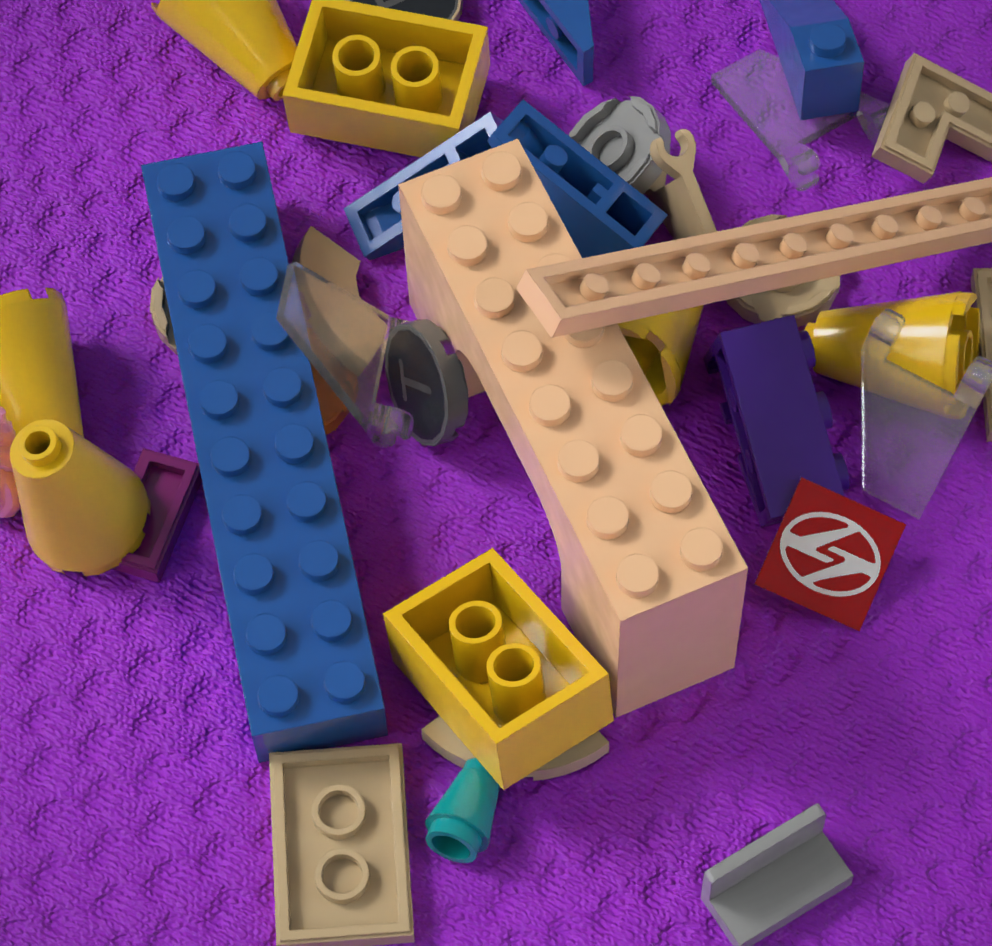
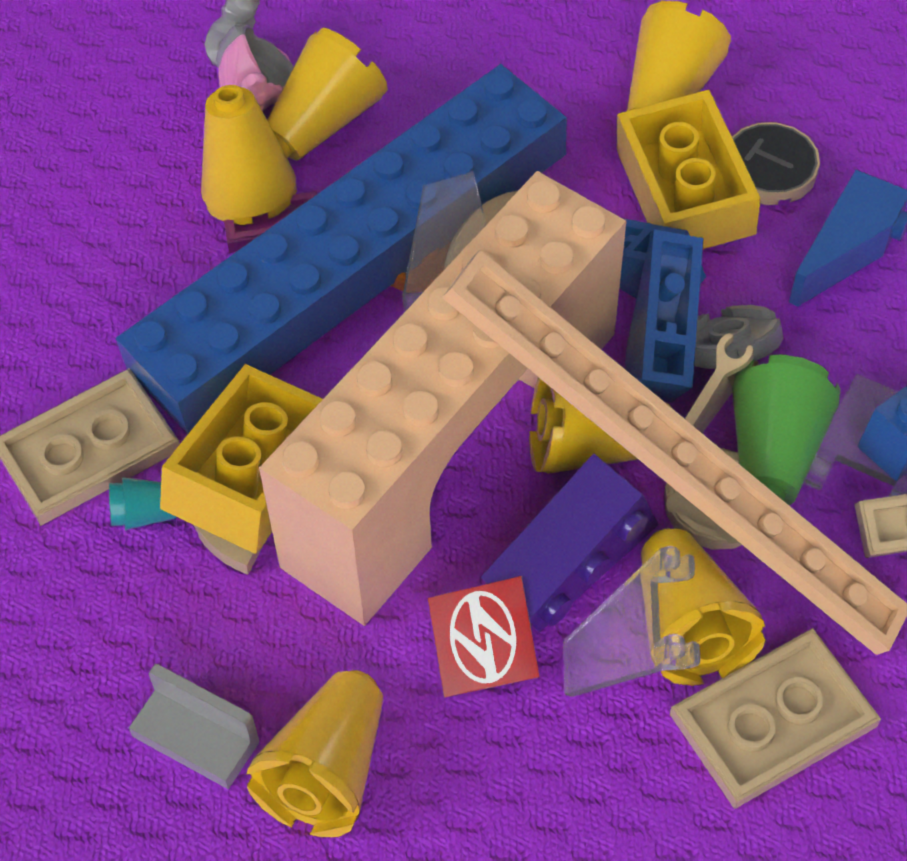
camera: 60 degrees right, 5 degrees down
(759, 163) = (782, 420): none -> bright green cone
(887, 761) = (321, 757): none -> yellow cone

